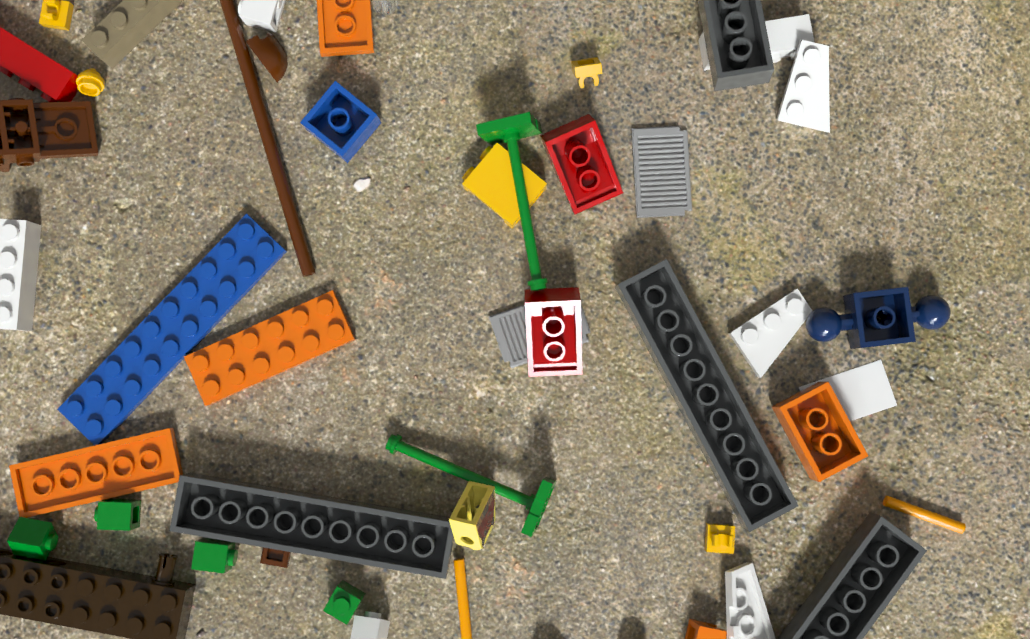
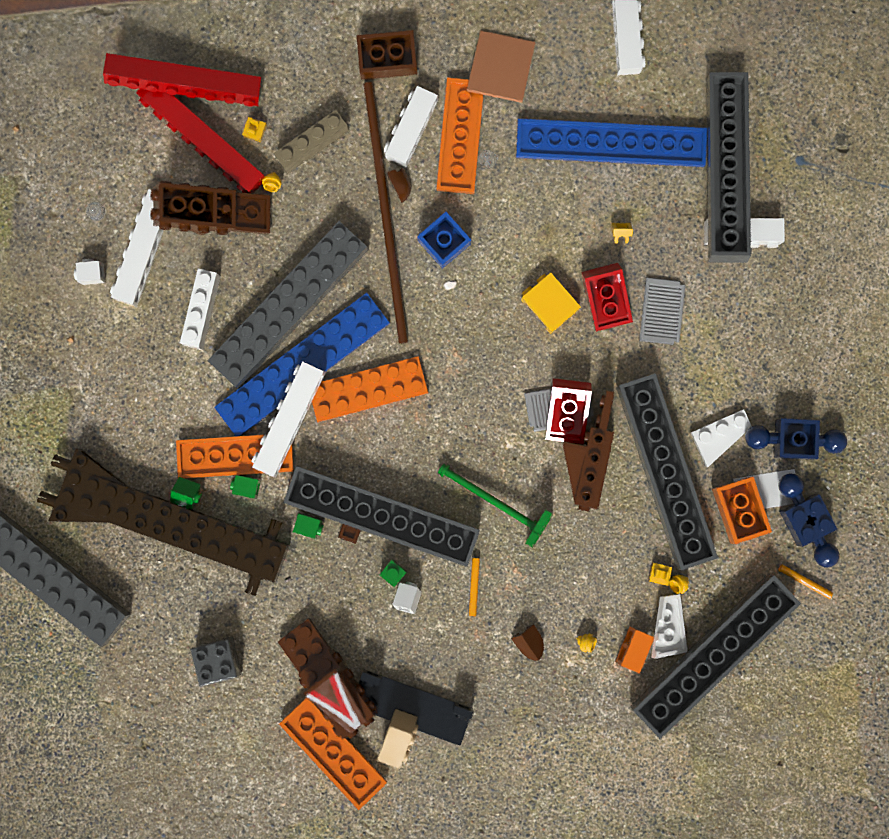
camera: 10 degrees right, 0 degrees up
(137, 250) = (288, 305): none -> dark grey brick
(160, 411) = (288, 420): none -> white brick
(472, 524) = (490, 536): light yellow torso -> none
(509, 131) = (561, 267): green tile -> none
(583, 400) = (581, 459): none -> reddish brown wedge
(749, 548) = (679, 584): none -> yellow plate
(807, 88) = (774, 270): white wing -> none
(931, 432) = (796, 517): none -> dark blue brick

